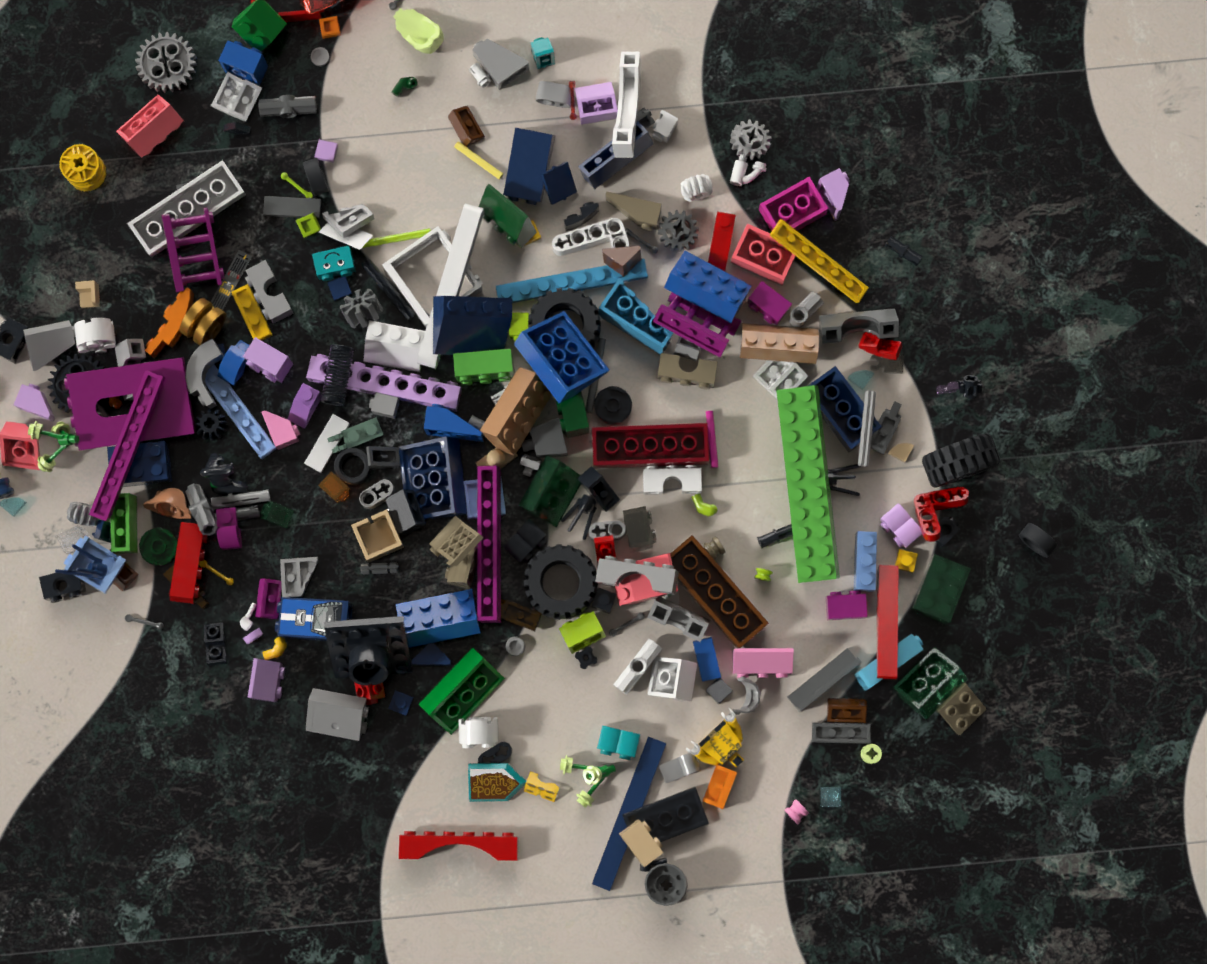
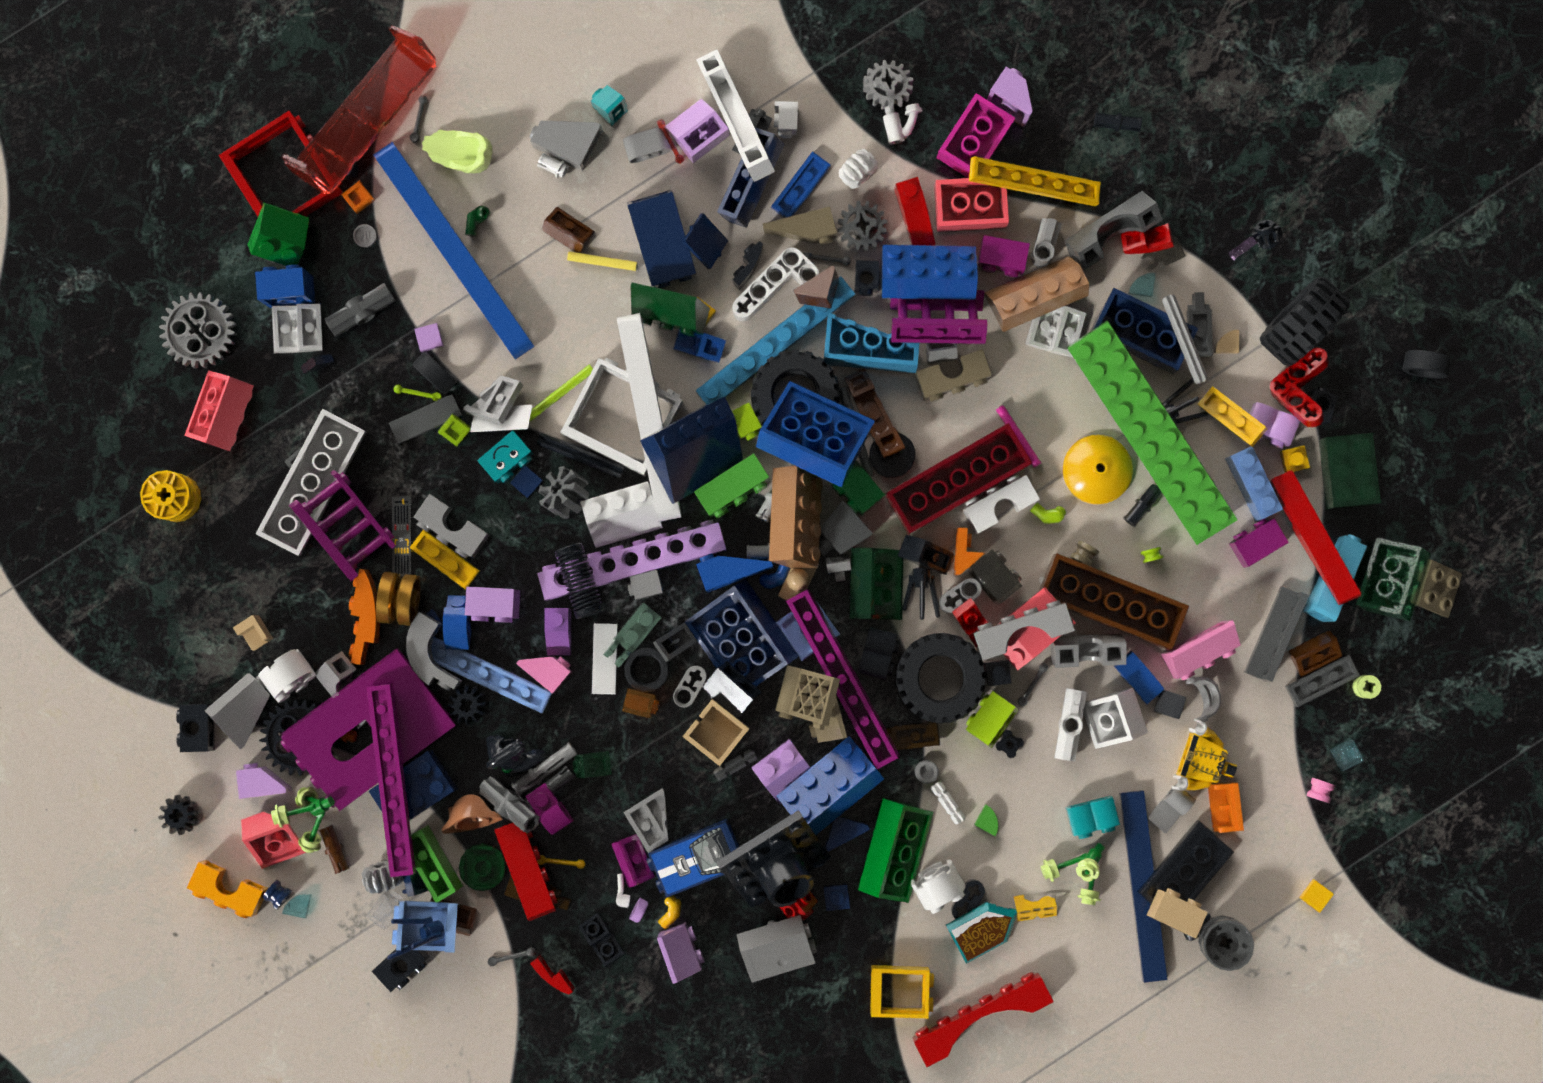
camera: 25 degrees left, 5 degrees up
(60, 477) = (334, 849): none -> reddish brown pin
(168, 655) = (558, 980): none -> red slope
(376, 99) = (453, 250): none -> blue beam
(391, 787) = (893, 1012): none -> yellow window
(410, 586) = (780, 768): none -> lavender slope
(480, 450) = (775, 579): none -> blue arm
(516, 256) = (700, 346): none -> blue slope
(518, 676) = (948, 802): none -> white axle
(540, 705) = (987, 820): none -> bright green tile
(616, 363) = (869, 405): none -> reddish brown slope
(624, 502) = (964, 559): none -> orange slope
(650, 179) = (801, 185): none -> blue tile
(661, 260) = (866, 267): none -> black brick
(753, 506) = (1081, 472): none -> yellow dish
(753, 888) = (1316, 895): none -> yellow tile
(874, 504) = (1232, 416): none -> yellow plate

